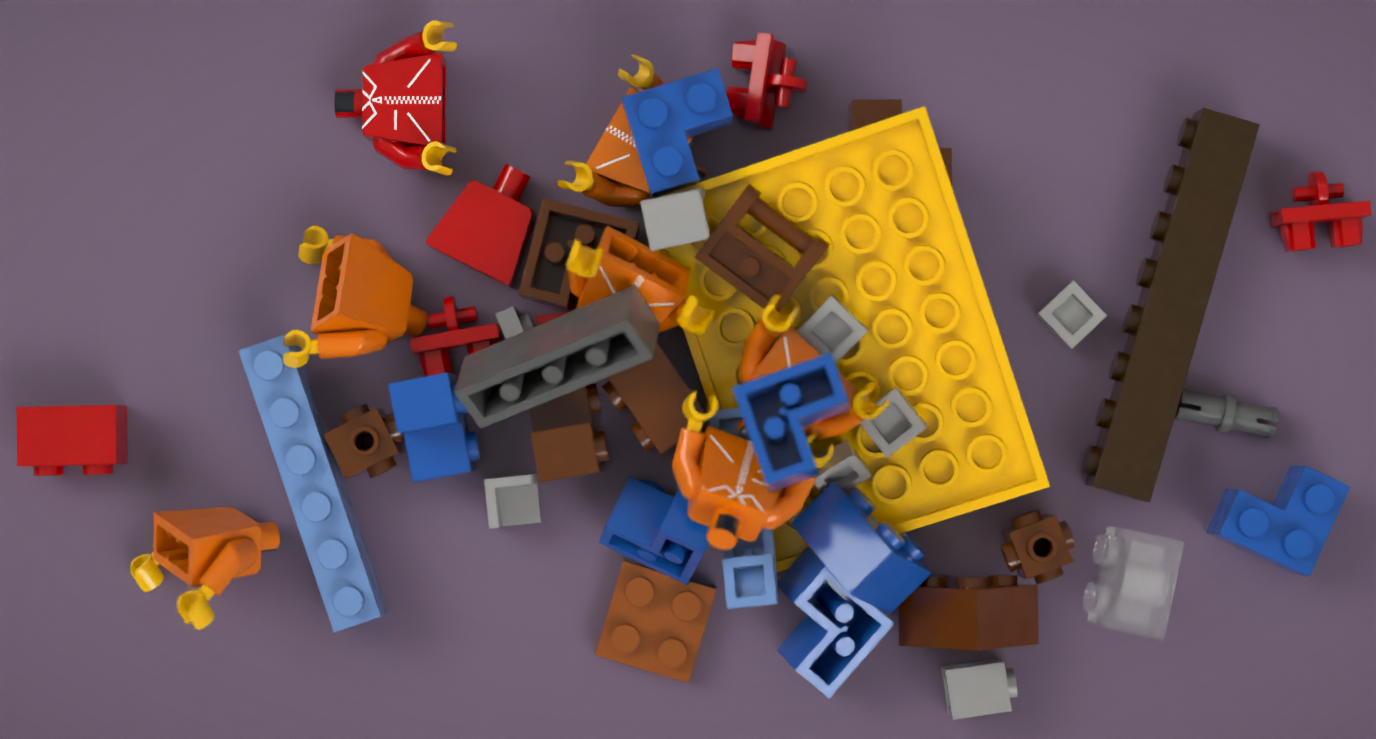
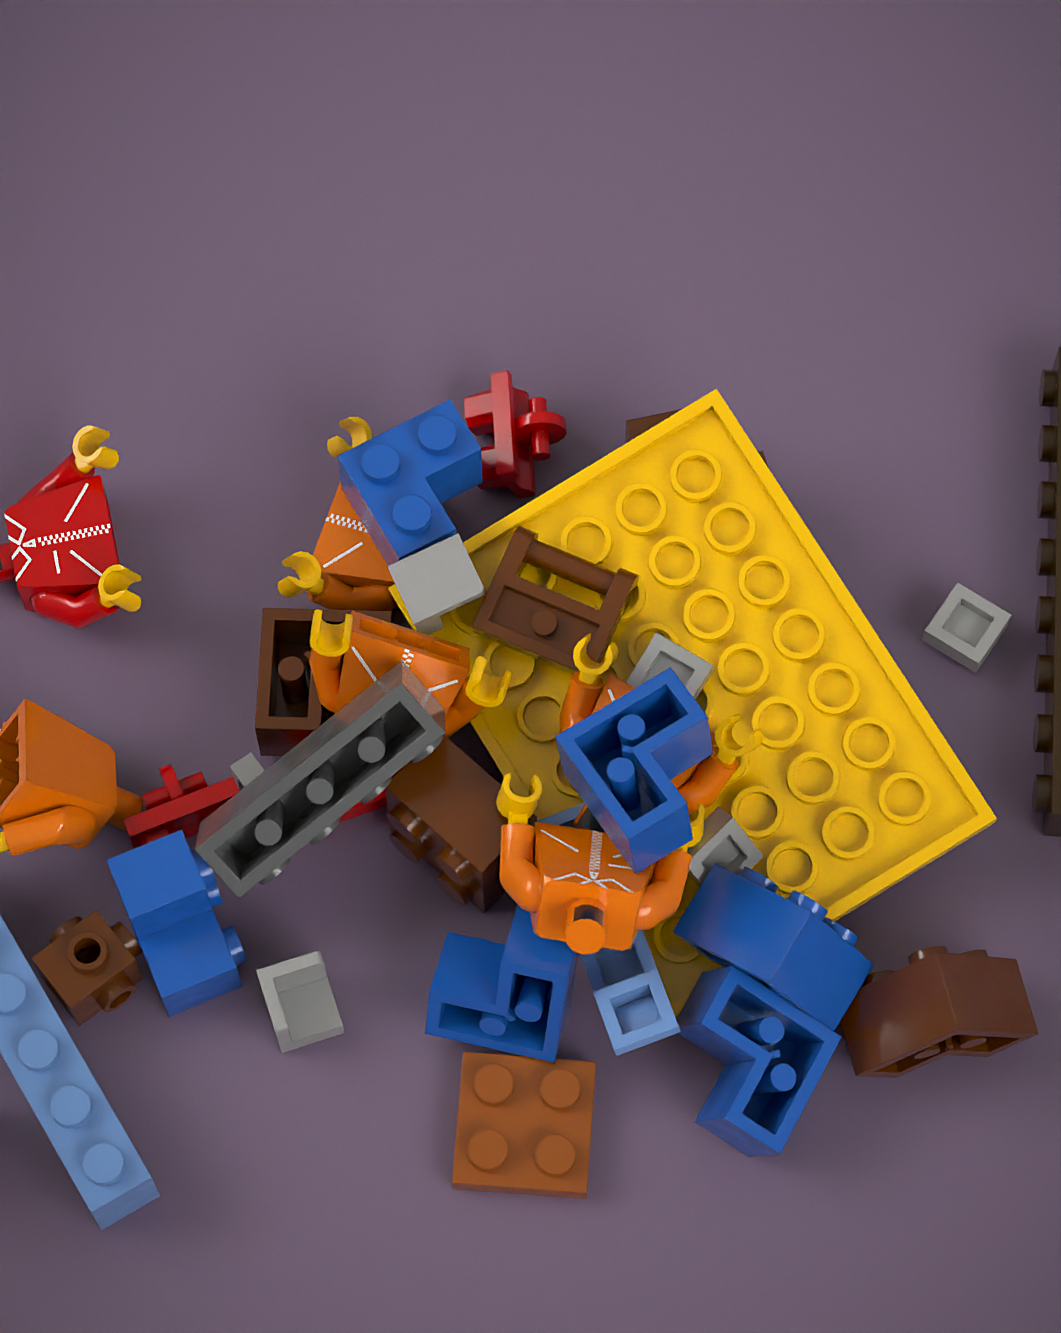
camera: 10 degrees left, 20 degrees down
(488, 227) = (198, 676): red torso -> none
(566, 435) = (354, 898): reddish brown brick -> none
(895, 424) = (772, 777): light grey plate -> none
(978, 688) = (974, 1112): light grey brick -> none
(1019, 546) = (1001, 930): reddish brown brick -> none

